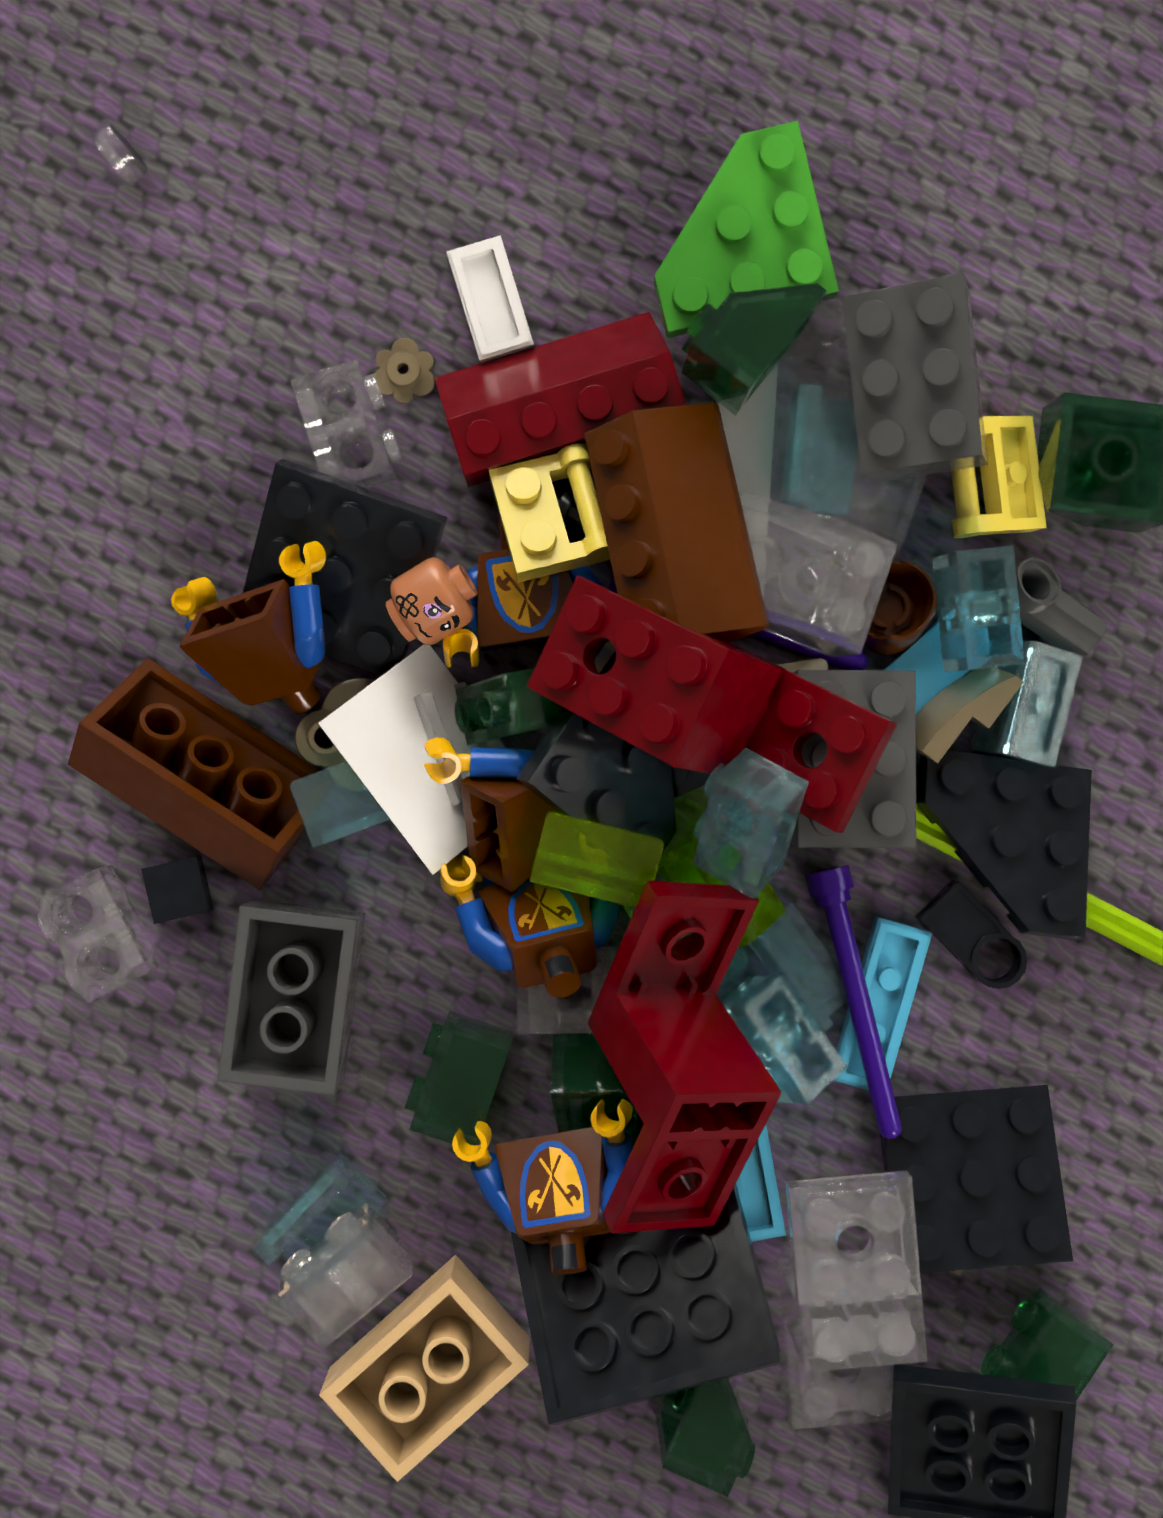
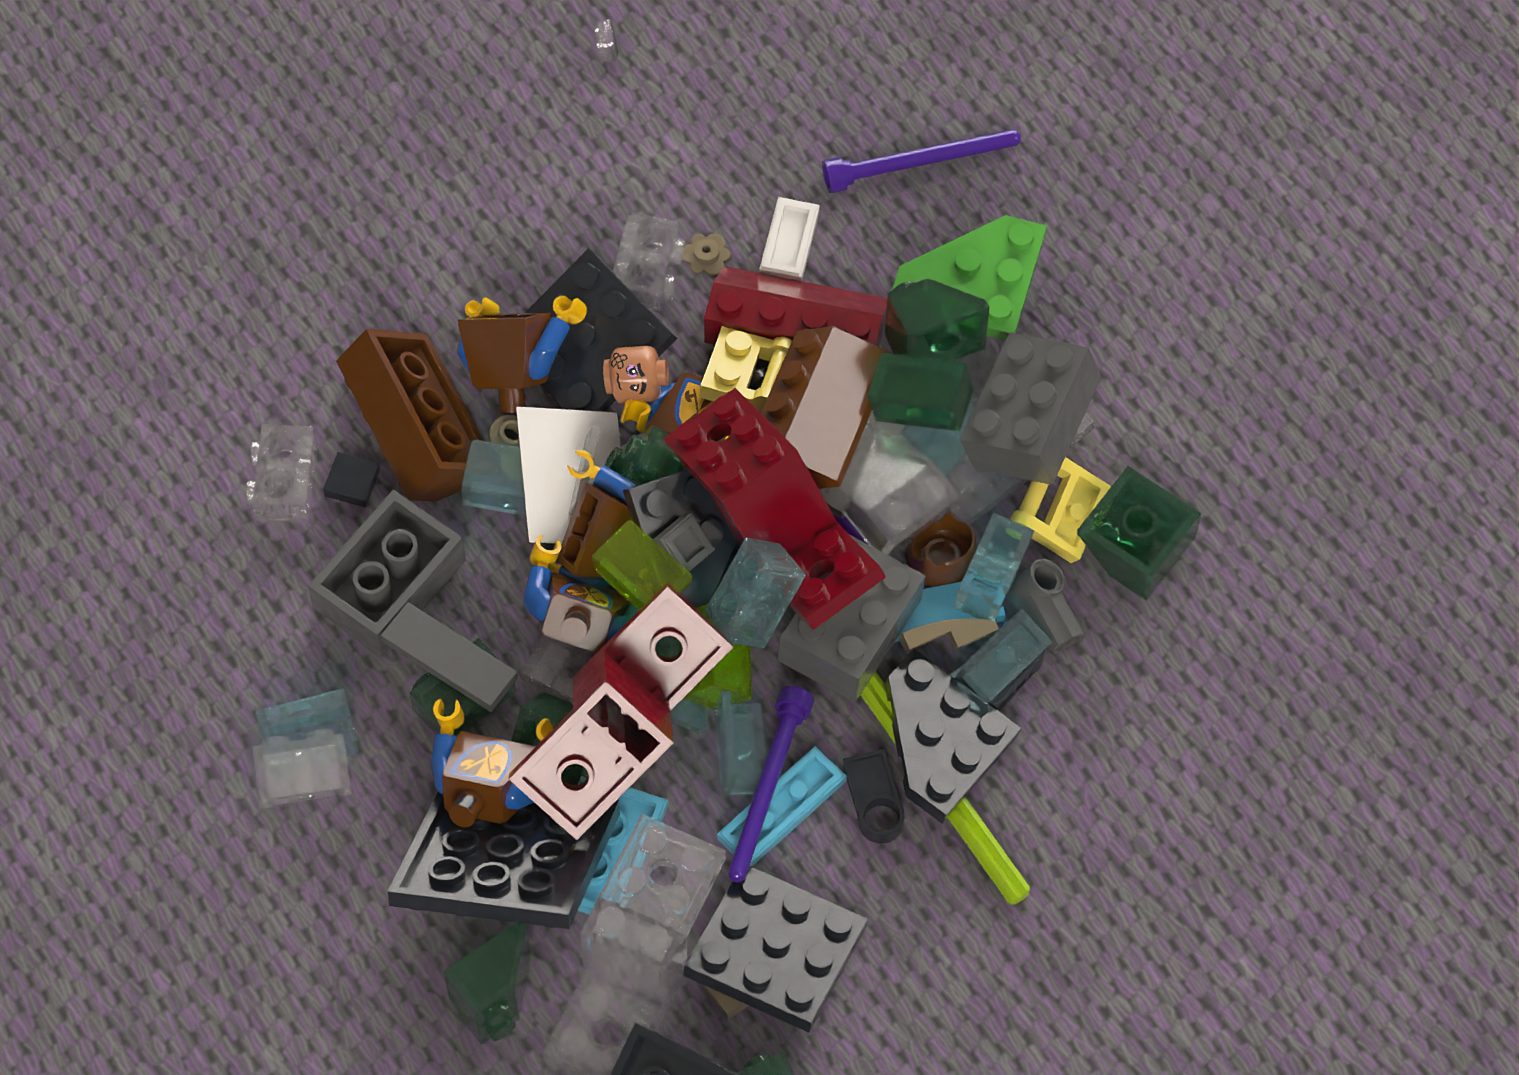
camera: 30 degrees right, 25 degrees down
(426, 1368) = (318, 855): tan brick -> none
(429, 1069) = (449, 656): none -> dark grey tile
(500, 179) = (840, 173): none -> dark purple piece
(625, 799) = (685, 541): none -> dark grey tile
(784, 1037) = (696, 775): clear light blue brick -> none
(788, 440) = (920, 391): none -> clear green brick

